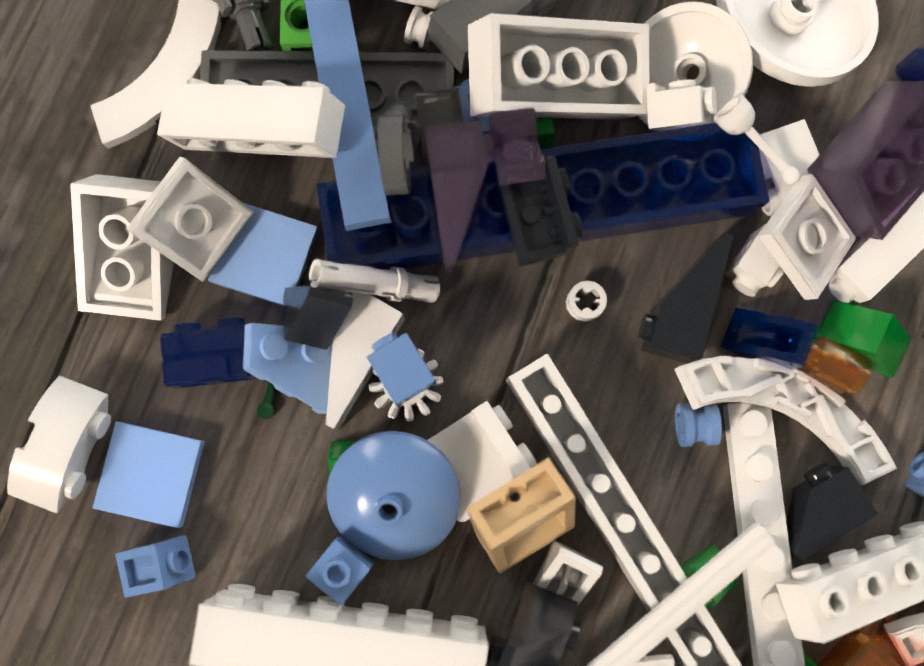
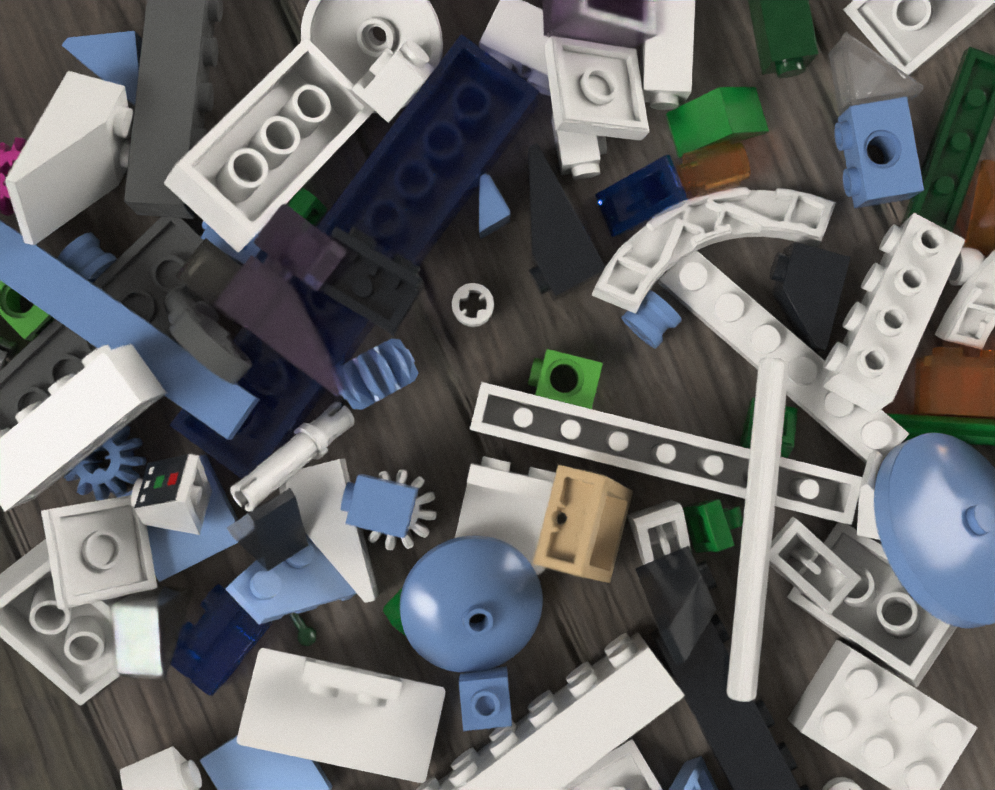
camera: 40 degrees left, 5 degrees up
(169, 303) = (148, 630): none -> clear smoke slope
(235, 485) = (341, 715): none -> white bracket
(255, 184) = (119, 471): none -> medium blue gear
(274, 230) = (173, 494): none -> white slope
(370, 31) = (87, 257): none -> medium blue wheel
(418, 28) = (120, 213): white bush -> none
(482, 283) = (377, 373): none -> medium blue gear
(607, 604) = (711, 525): none -> green tile
(620, 415) = (586, 373): none -> bright green brick
(661, 251) = (492, 207): none -> medium blue slope
(738, 117) = (450, 48): white hinge -> none

